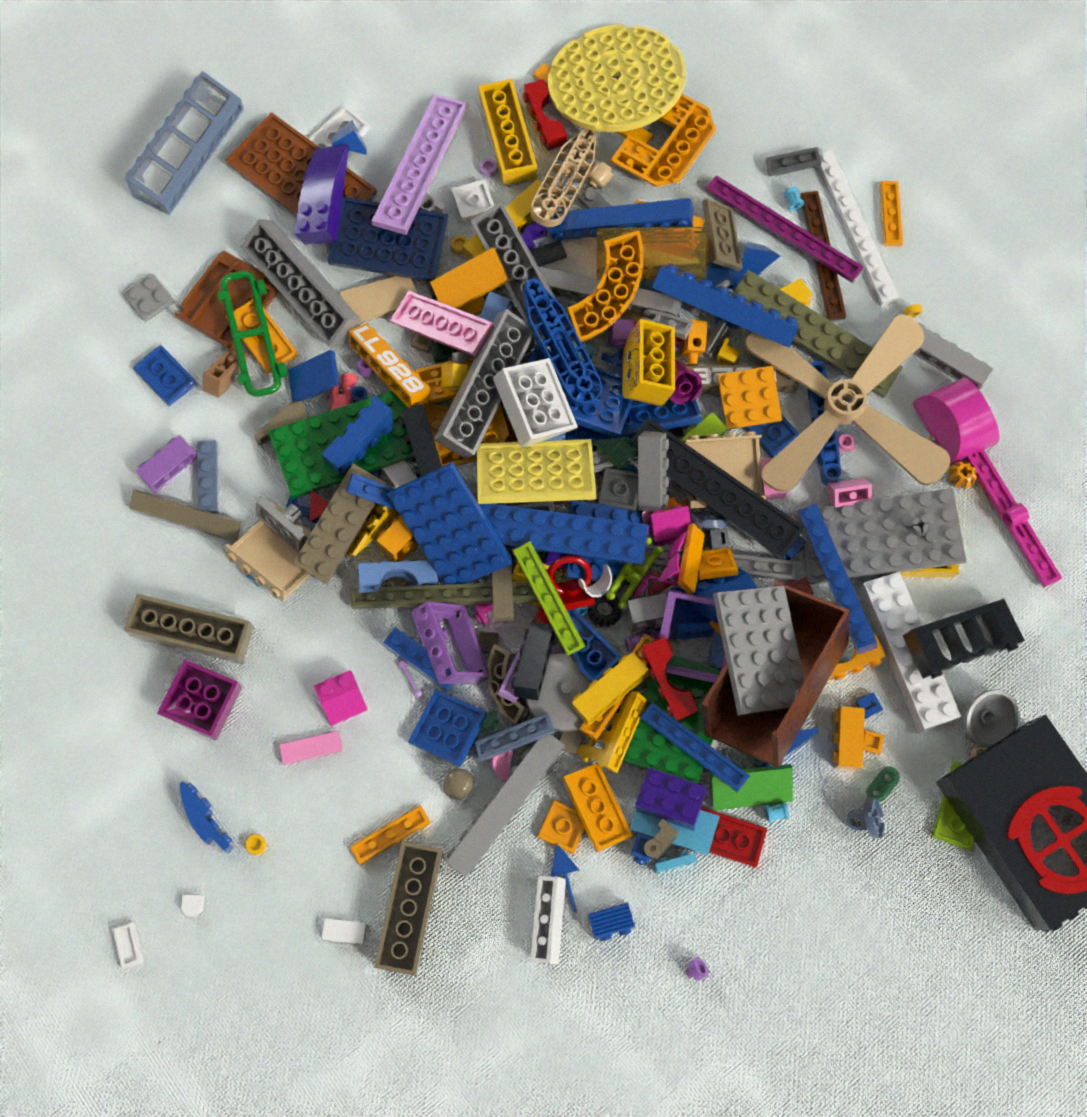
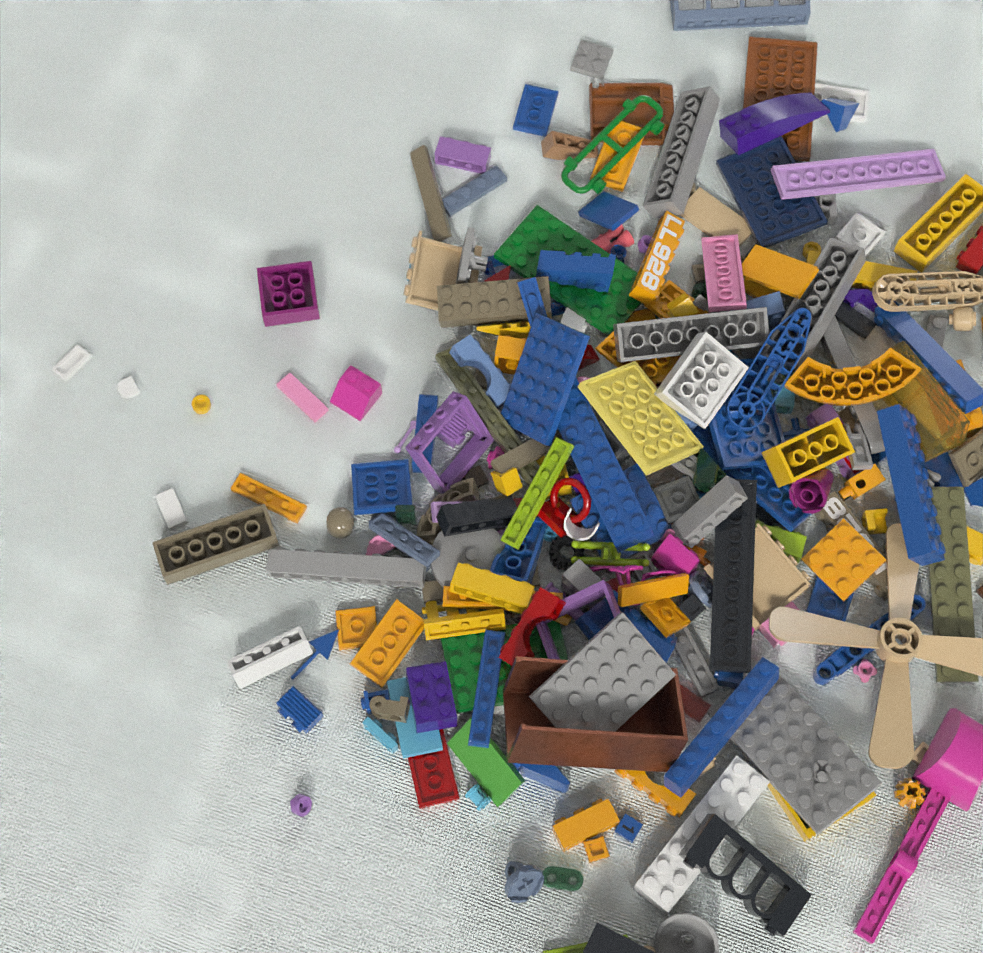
camera: 60 degrees right, 5 degrees down
(189, 628) = (339, 252): dark tan brick -> none
(198, 812) = (199, 348): blue slope -> none
(289, 414) = (565, 213): dark tan slope -> none
(421, 439) = (613, 311): black brick -> none
(488, 168) = (899, 229): lavender tile -> none
(521, 617) = (507, 482): none -> yellow panel
(716, 340) = (882, 502): light grey tile -> none
(849, 492) = (817, 697): bright pink brick -> none

